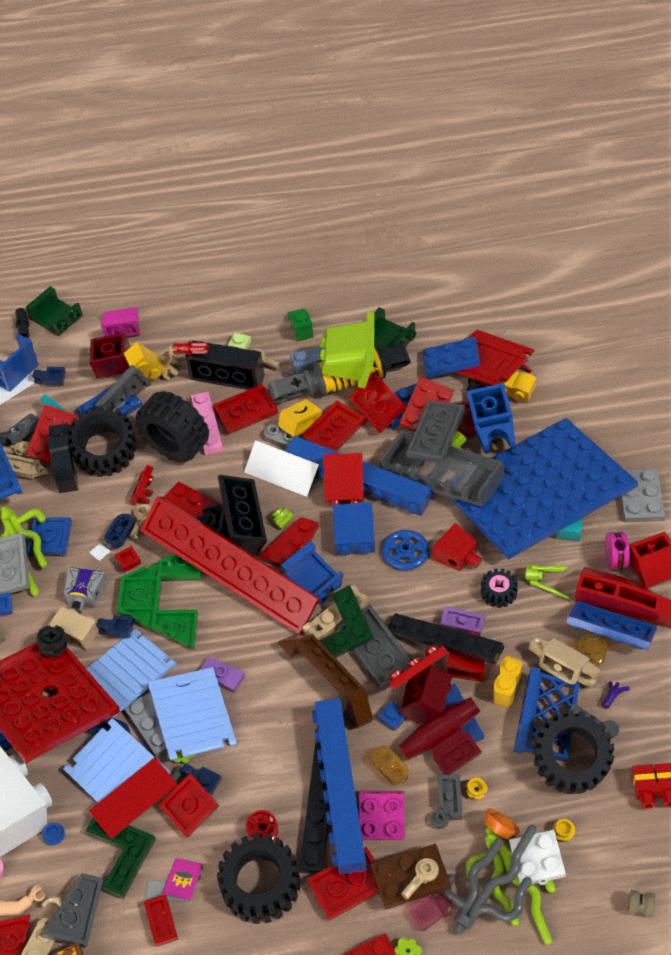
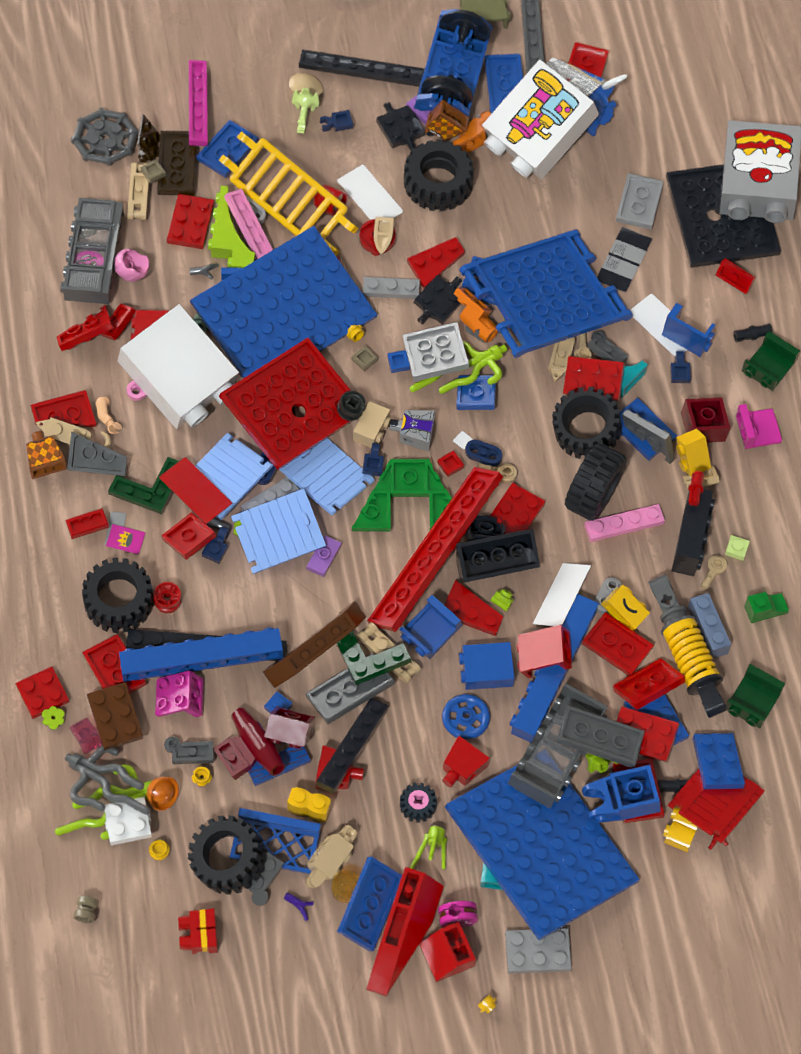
camera: 80 degrees right, 10 degrees up
(53, 833) = (168, 433): blue plate -> none
(61, 458) = (557, 384): black arch -> none
(145, 478) = (545, 469): red plate -> none
(245, 409) = (641, 557): red plate -> none
(349, 350) = (702, 644): lime windscreen -> none
(390, 766) = (224, 702): clear yellow plate -> none
(416, 665) = (315, 717): red plate -> none
(426, 871) = (112, 723): tan plate -> none
(463, 620) = (379, 767): medium lavender plate -> none

